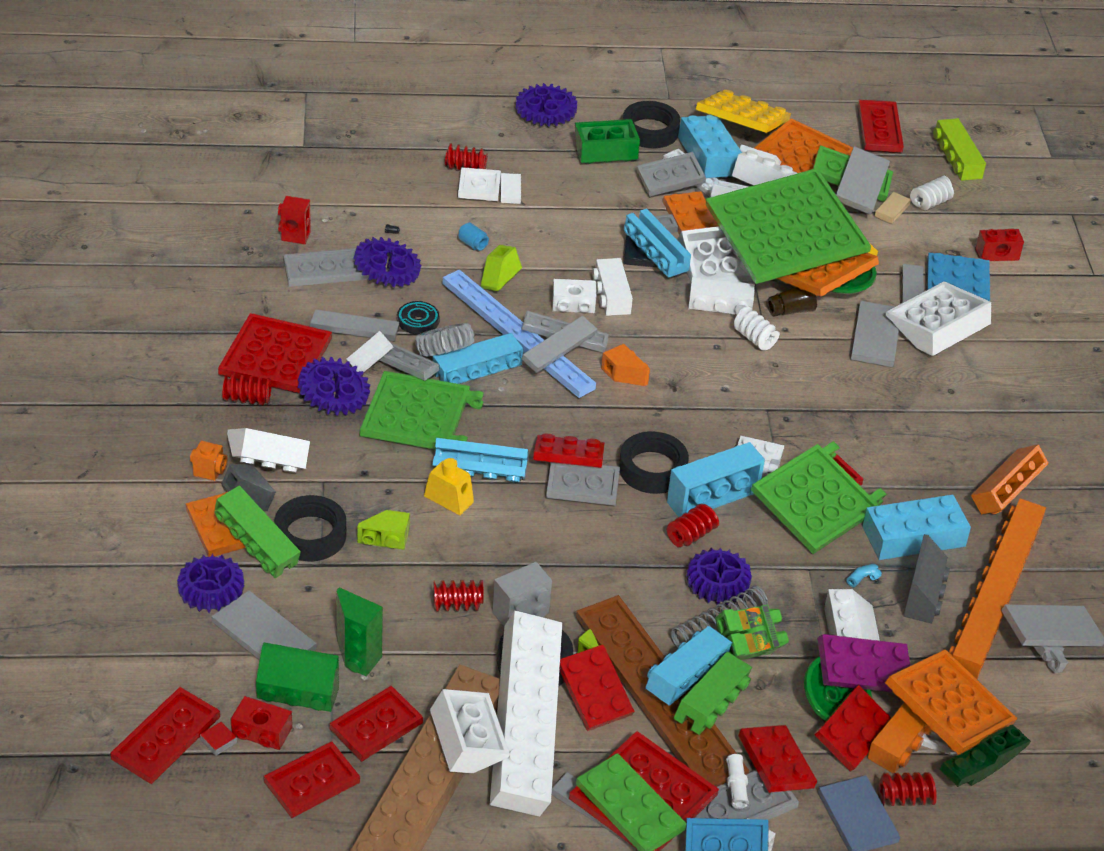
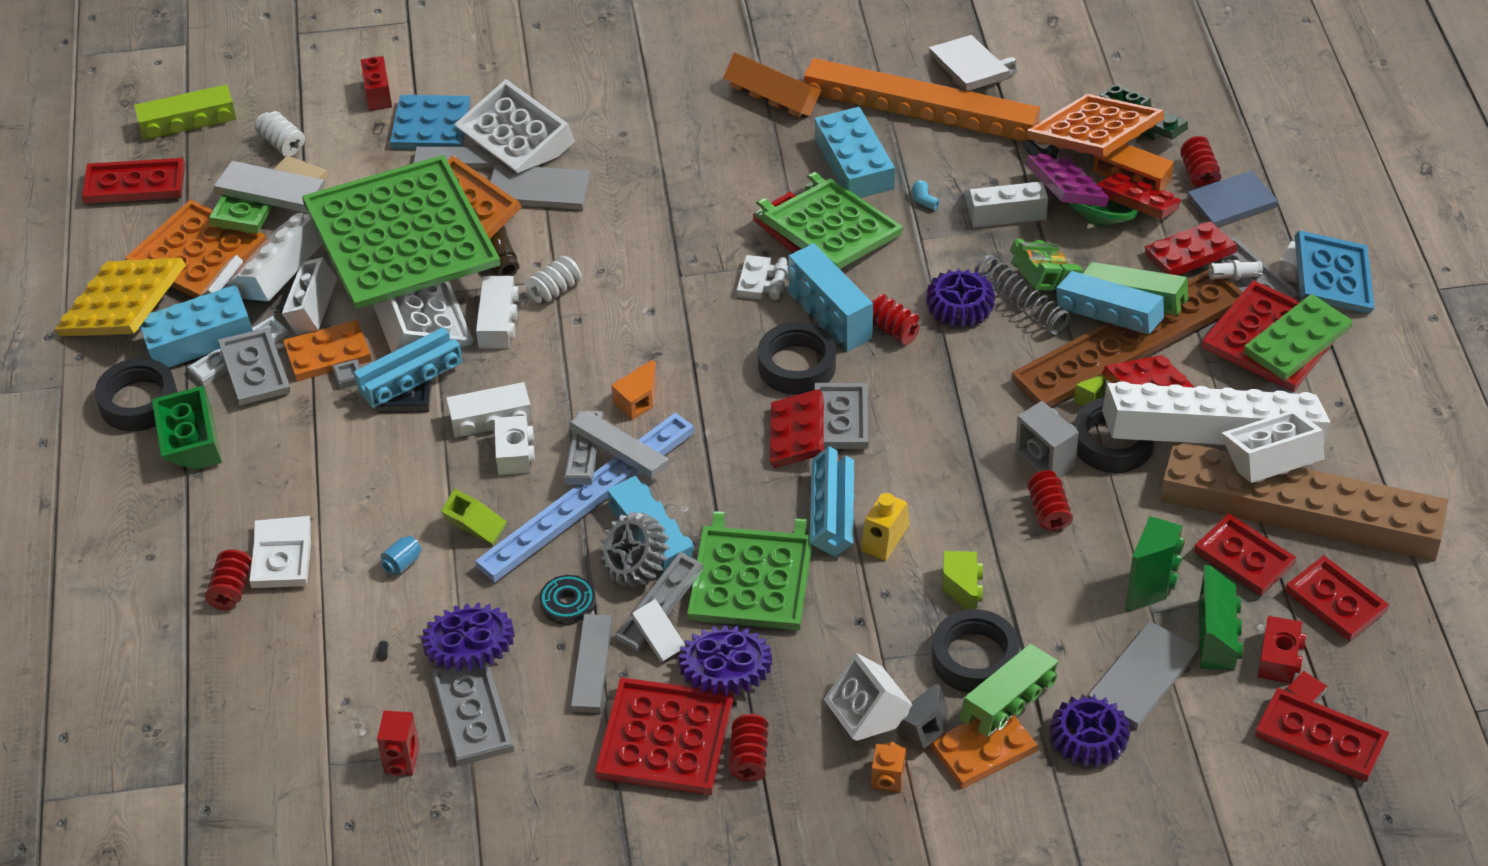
camera: 90 degrees left, 5 degrees up
(546, 104) = (91, 505): dark purple gear -> none
(927, 582) = (934, 148): dark grey slope -> none

